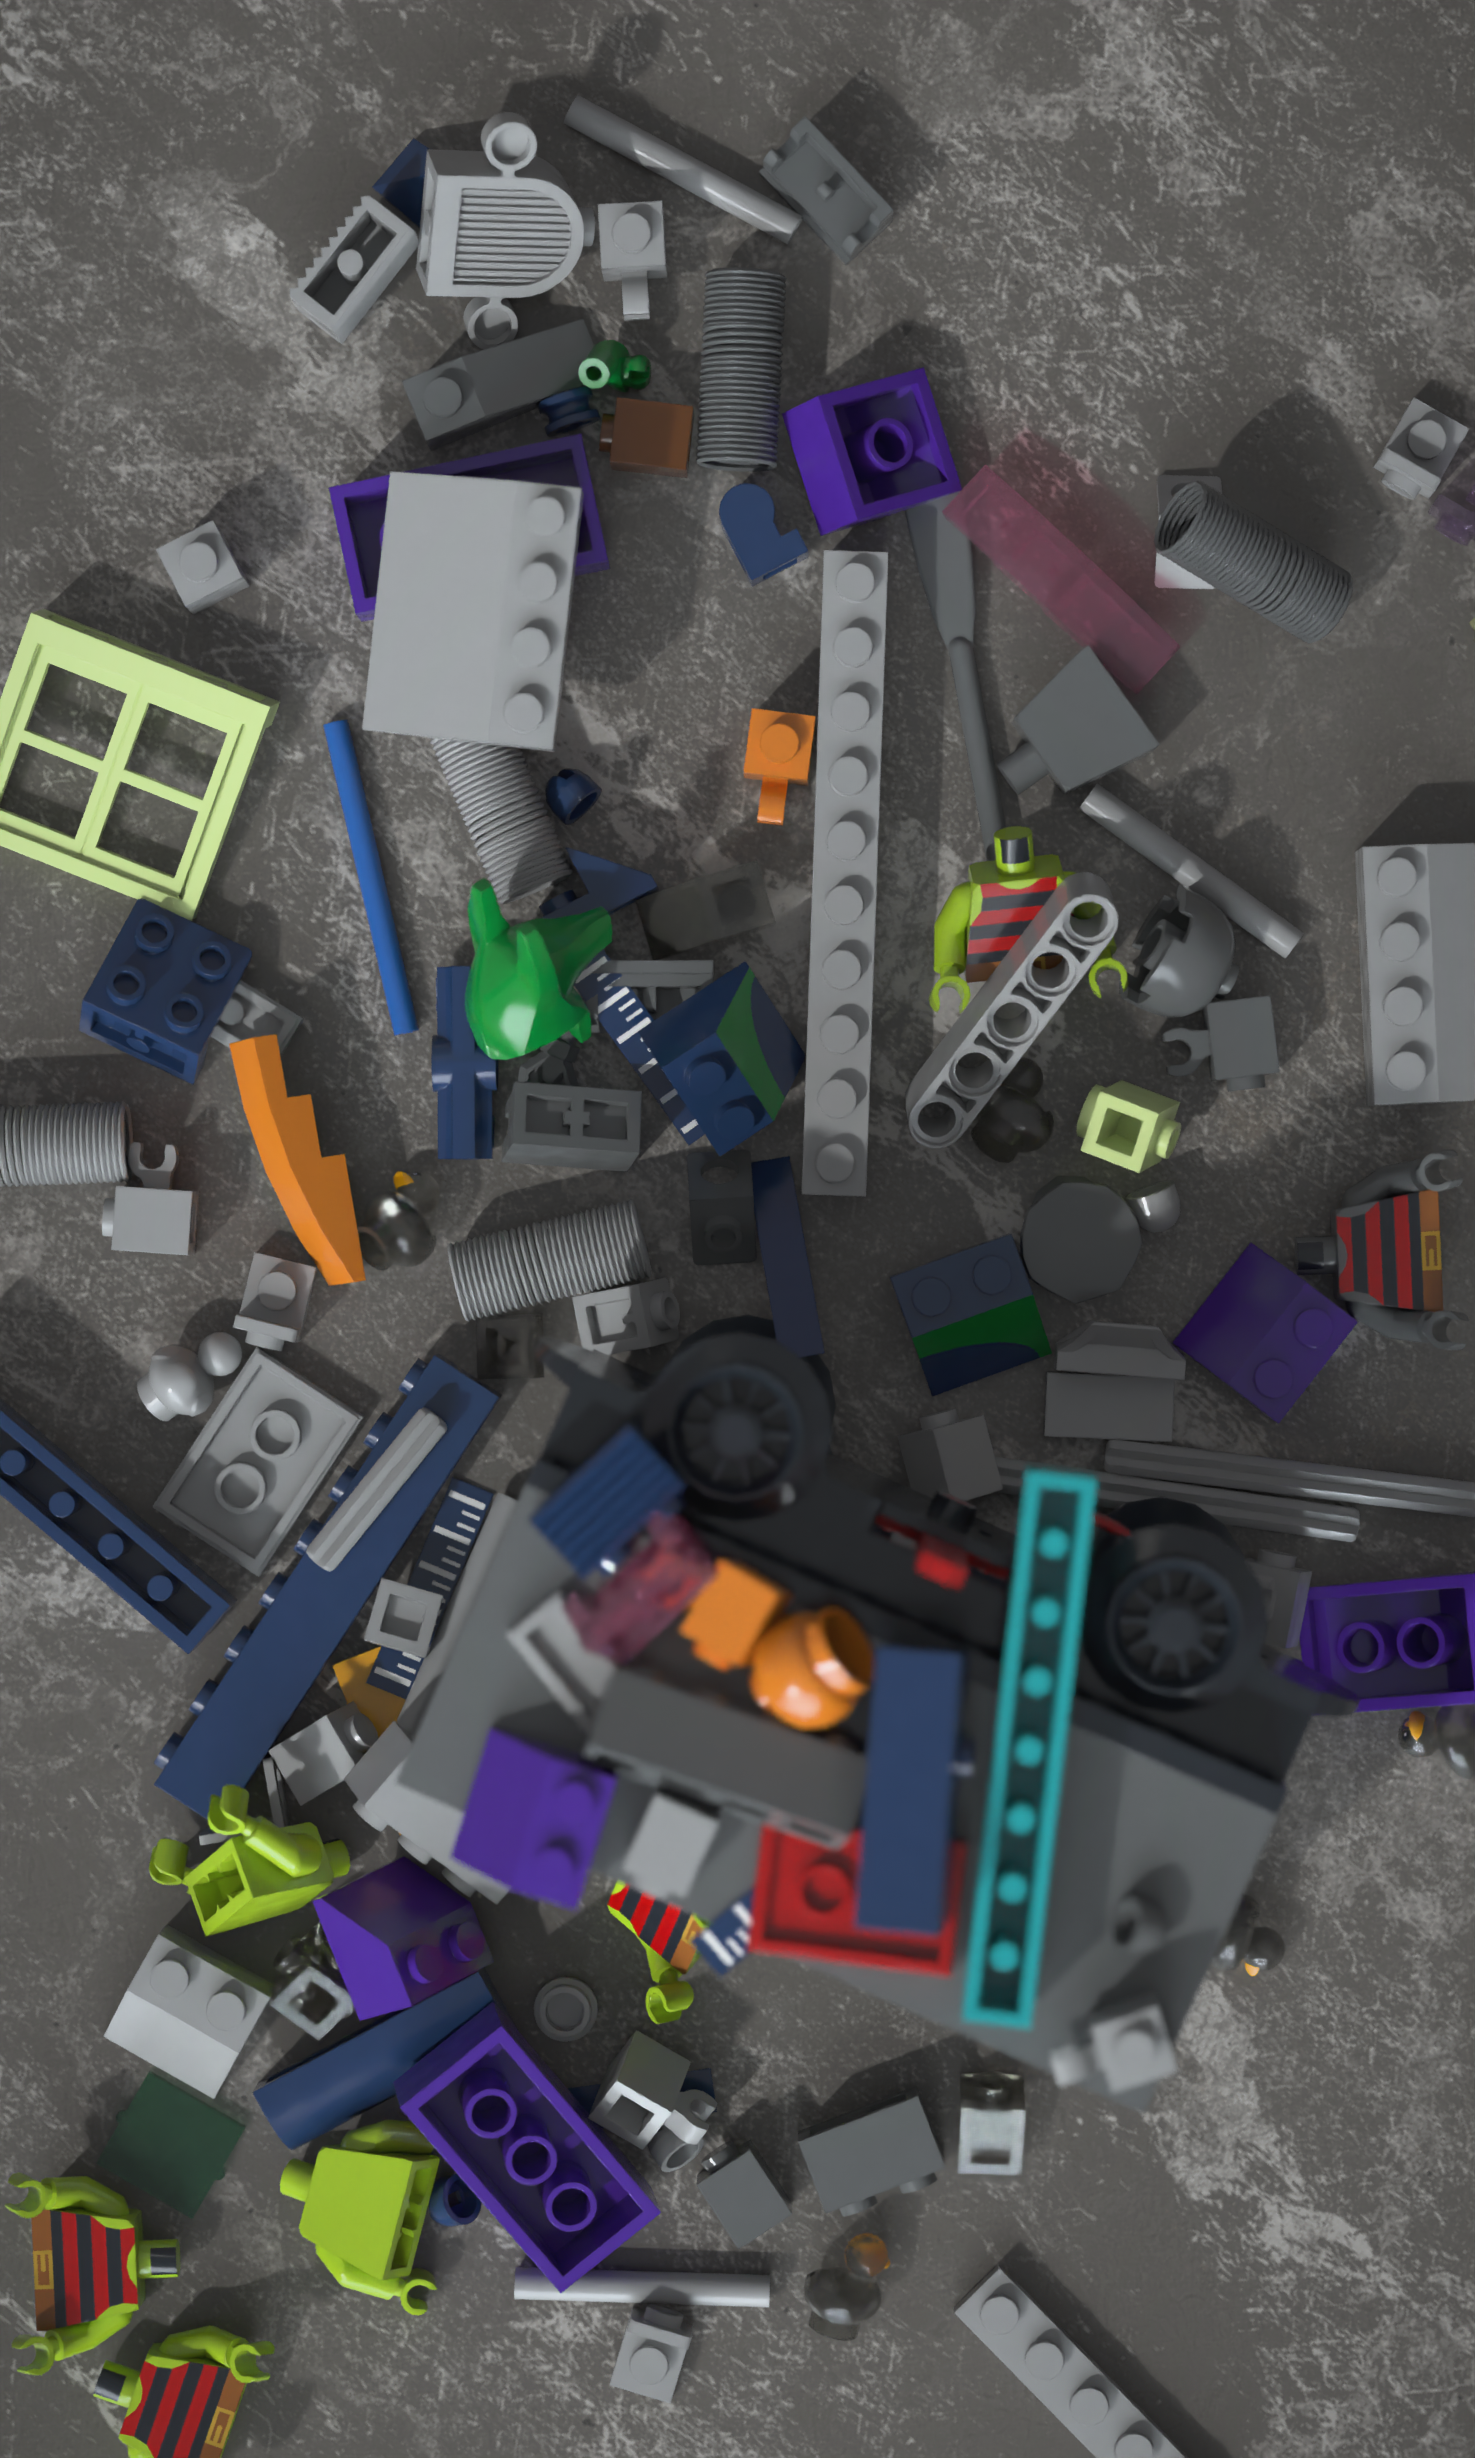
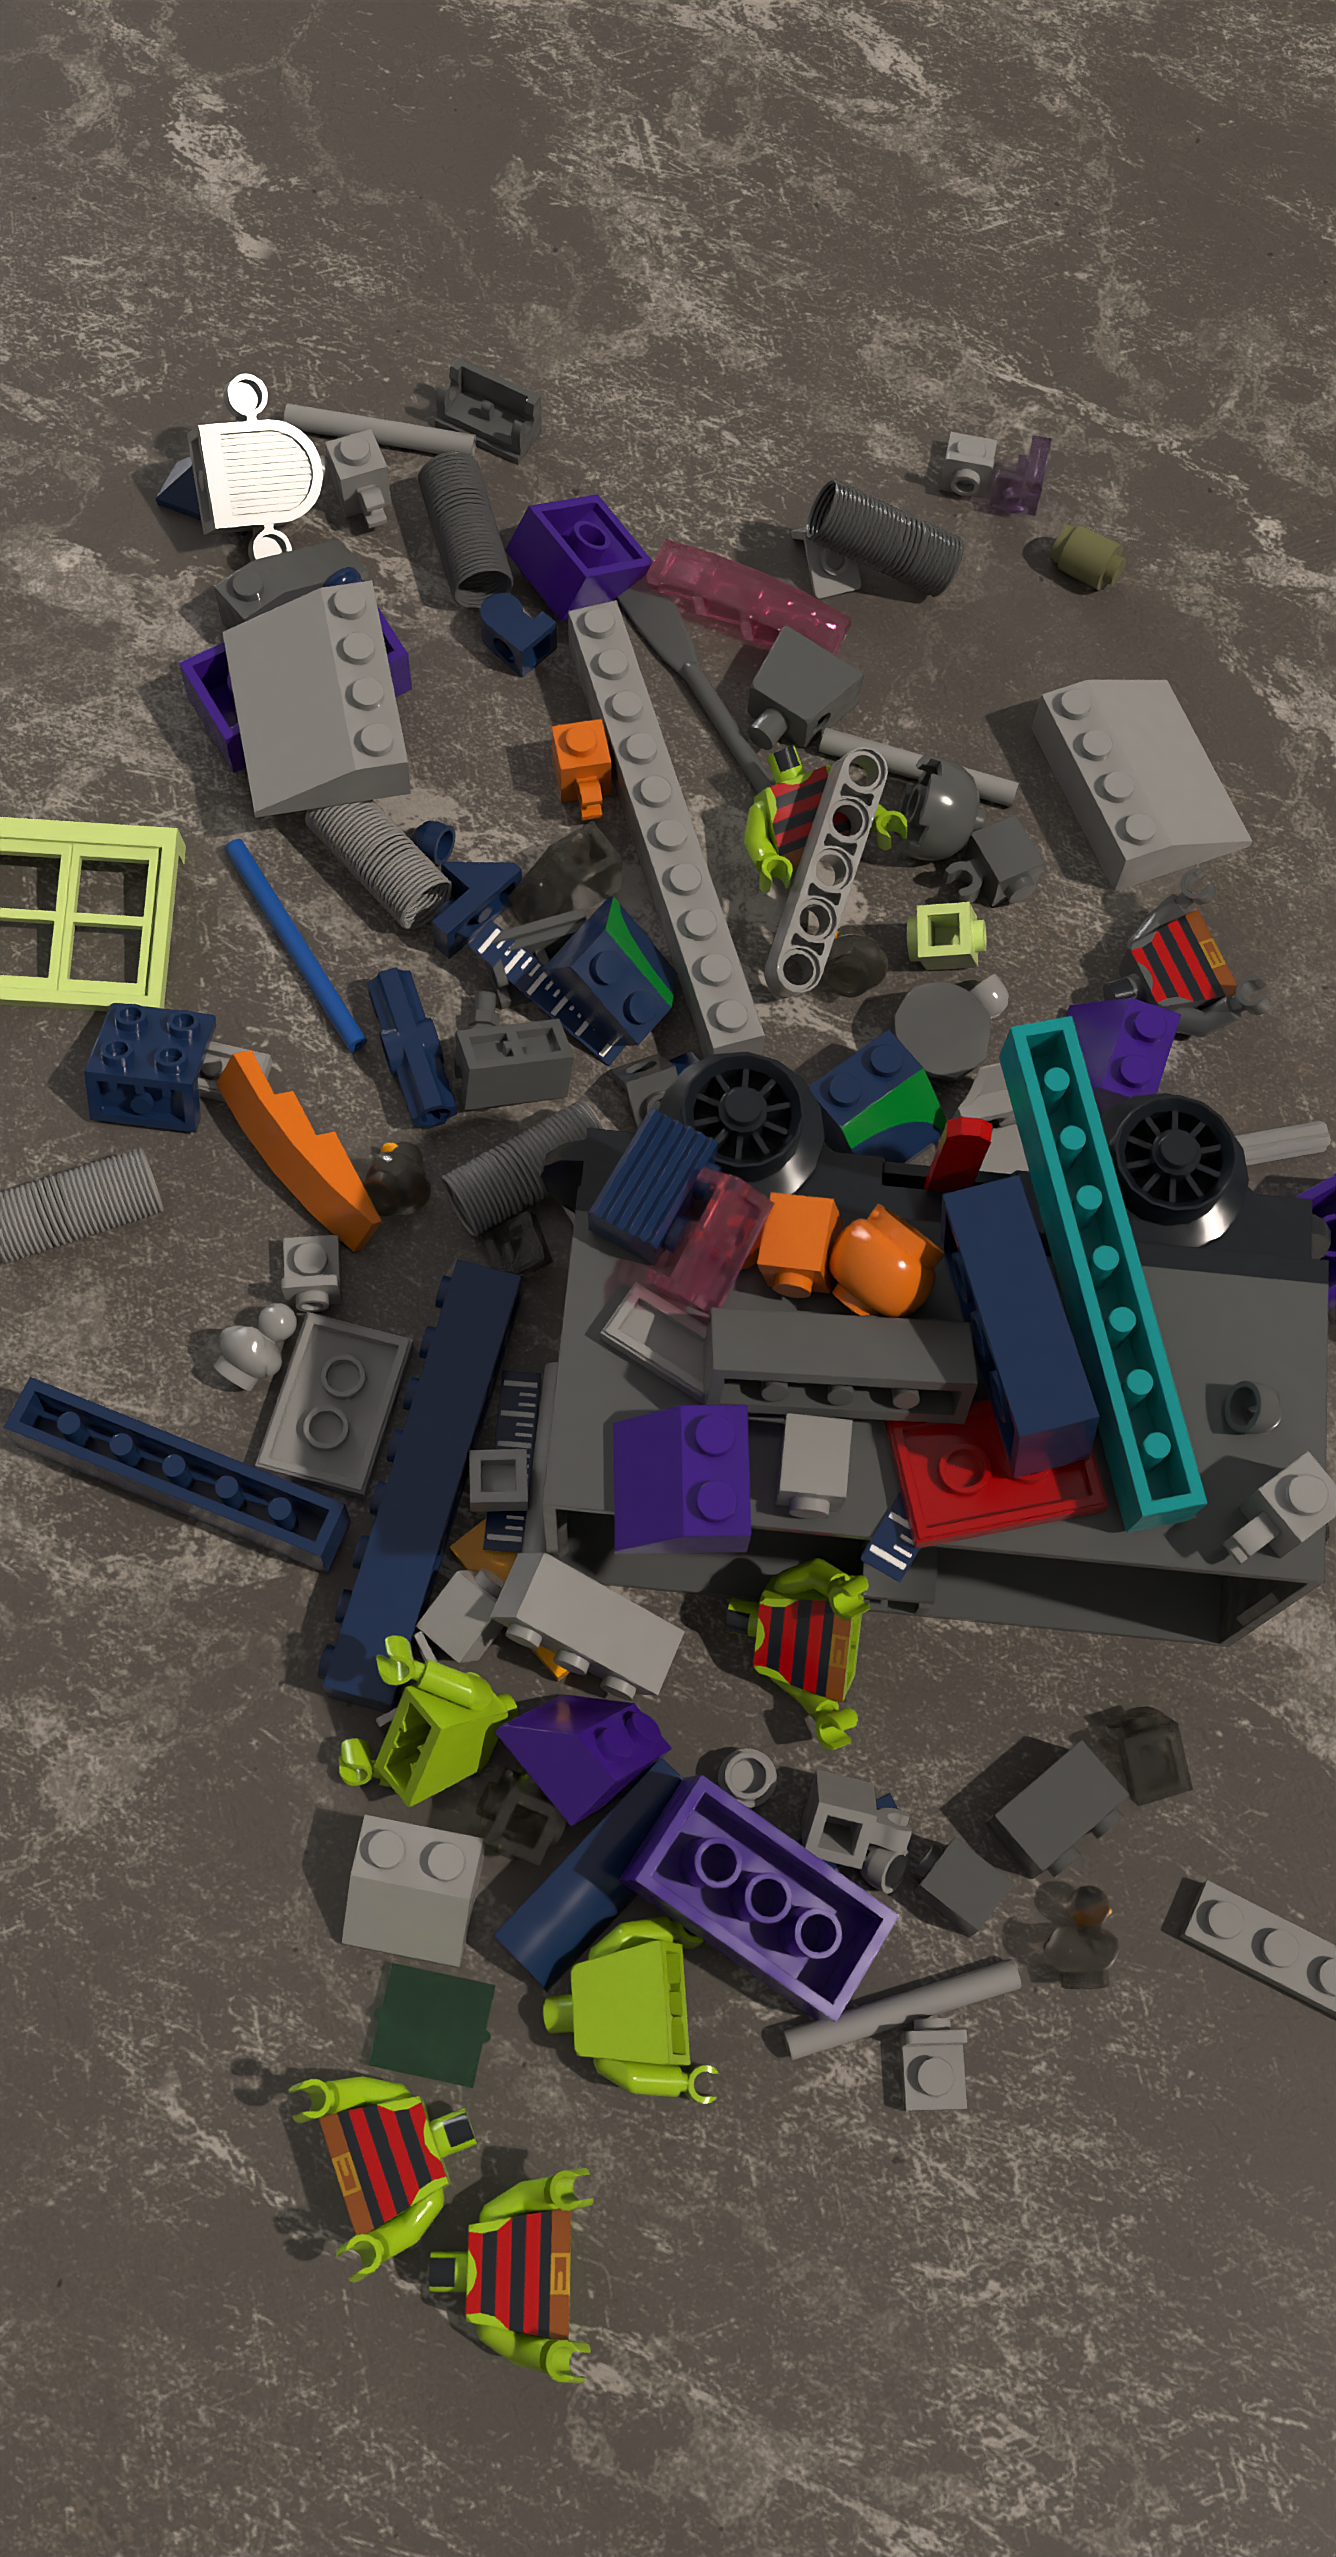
camera: 25 degrees left, 20 degrees down
(152, 1216) = (188, 1230): light grey brick -> none
(202, 567) = (97, 759): light grey brick -> none
(354, 269) = (155, 535): light grey brick -> none
(376, 1489) = (442, 1374): light grey axle -> none
(456, 2214) = (717, 1978): dark blue hinge -> none
(525, 975) = (437, 940): green piece -> none
(612, 365) = (375, 561): green arm -> none
(648, 437) = (412, 591): reddish brown brick -> none

